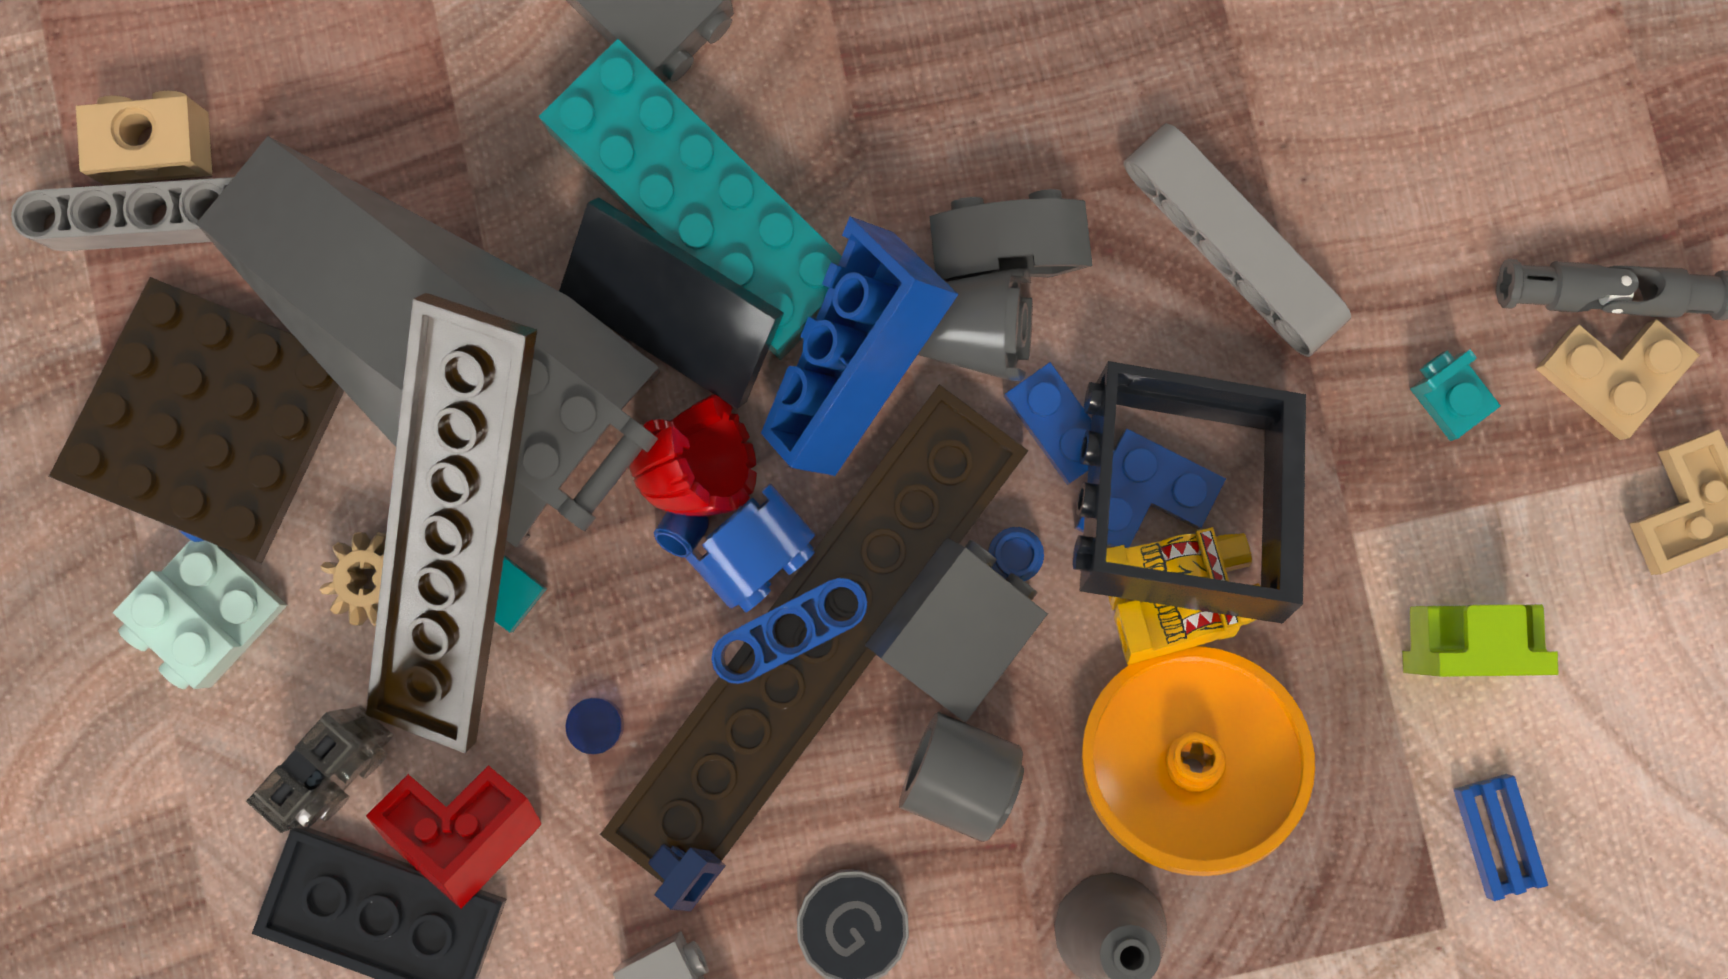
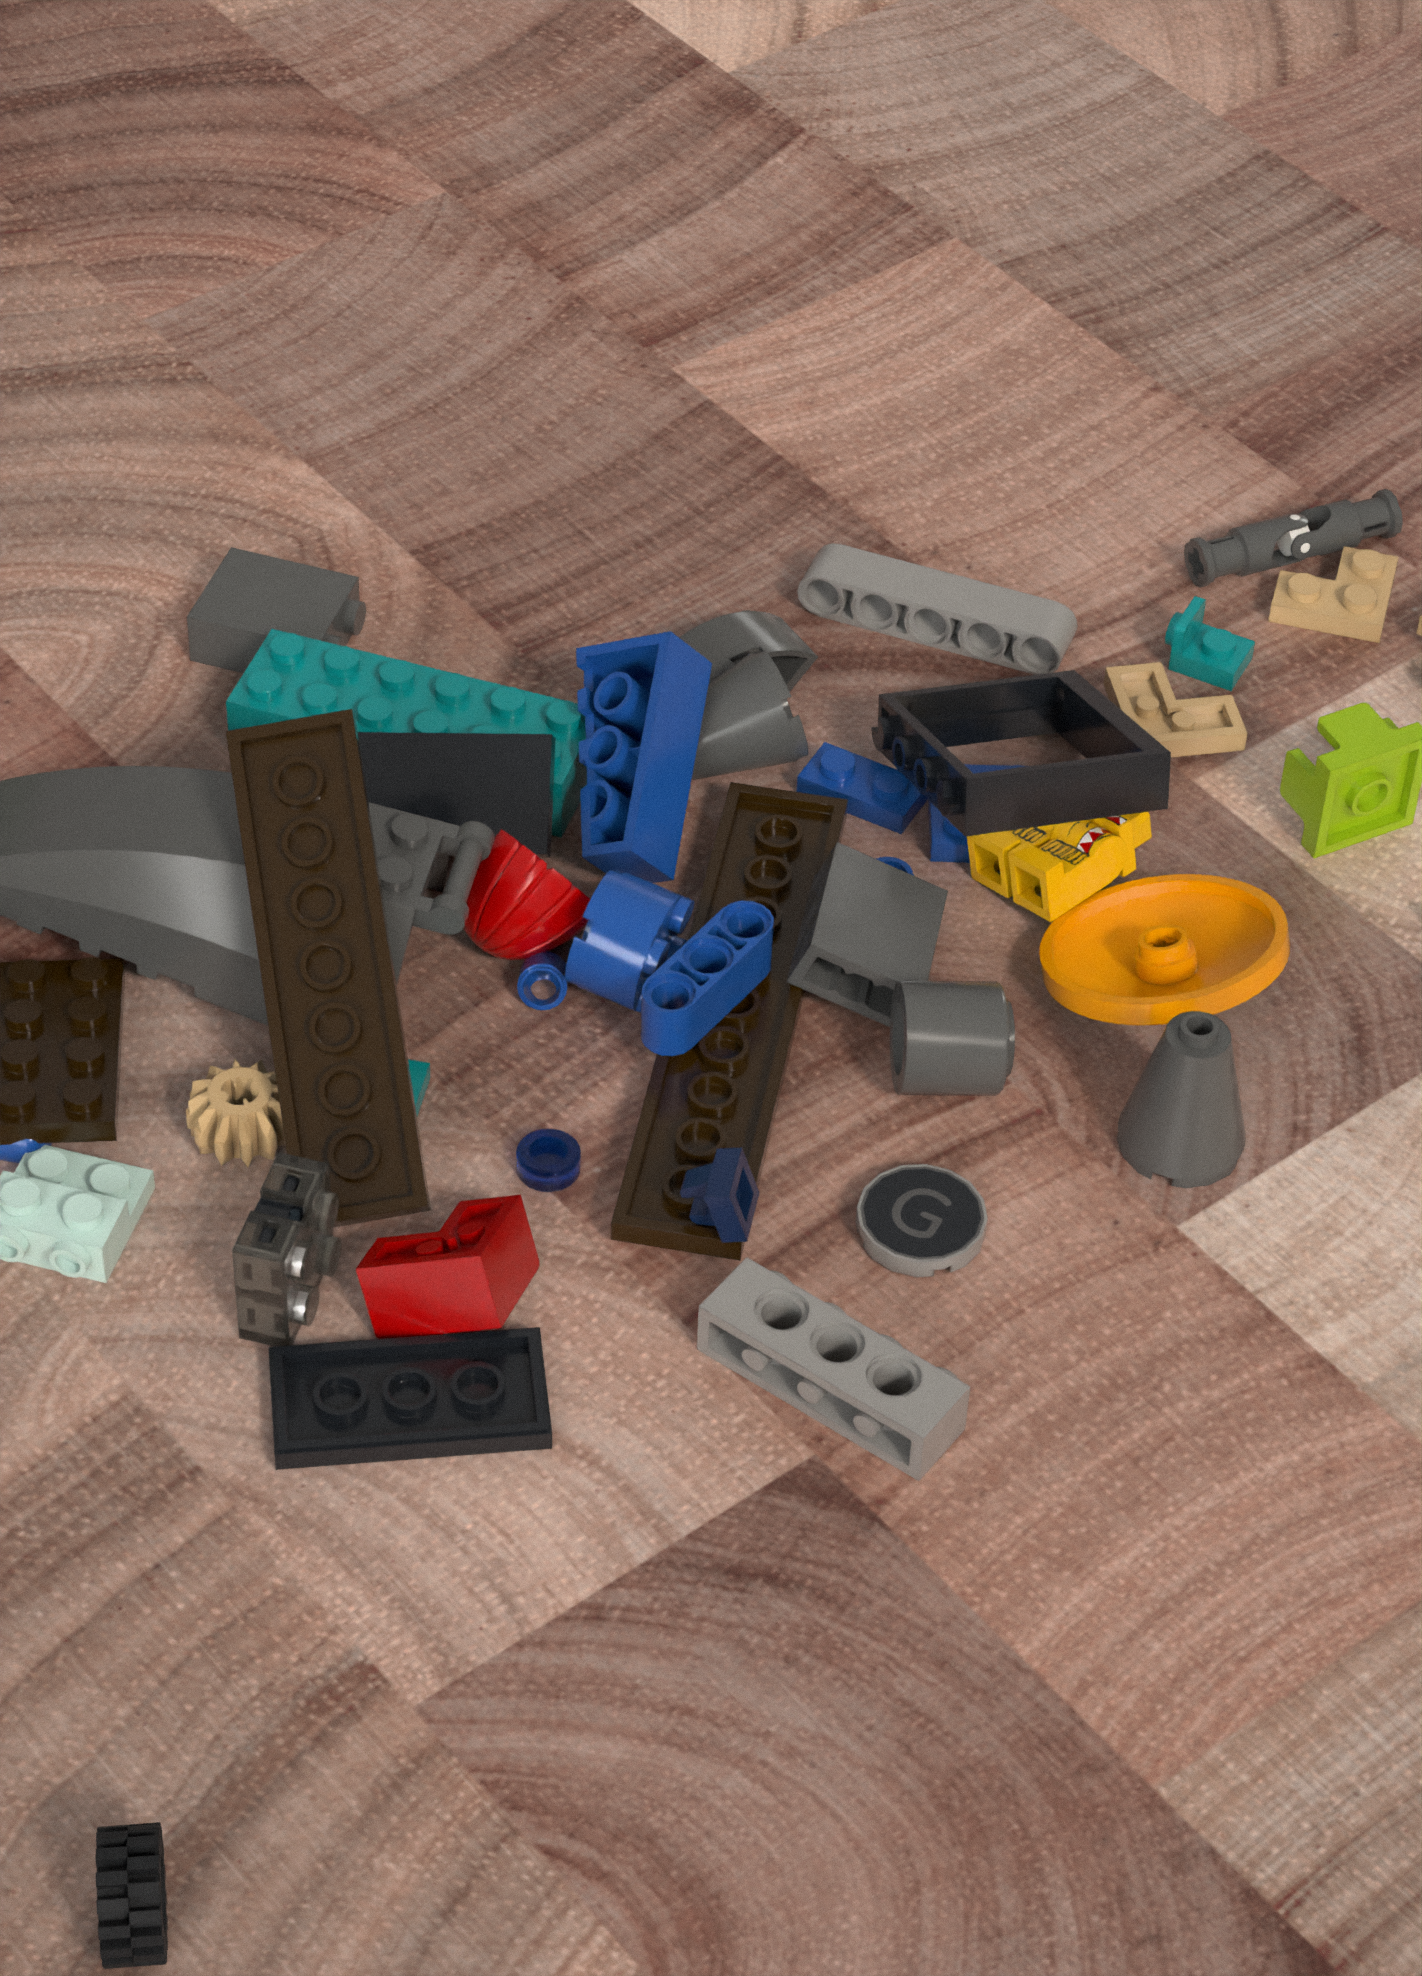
camera: 30 degrees left, 40 degrees down
(1353, 465) = (1180, 725): none -> tan plate

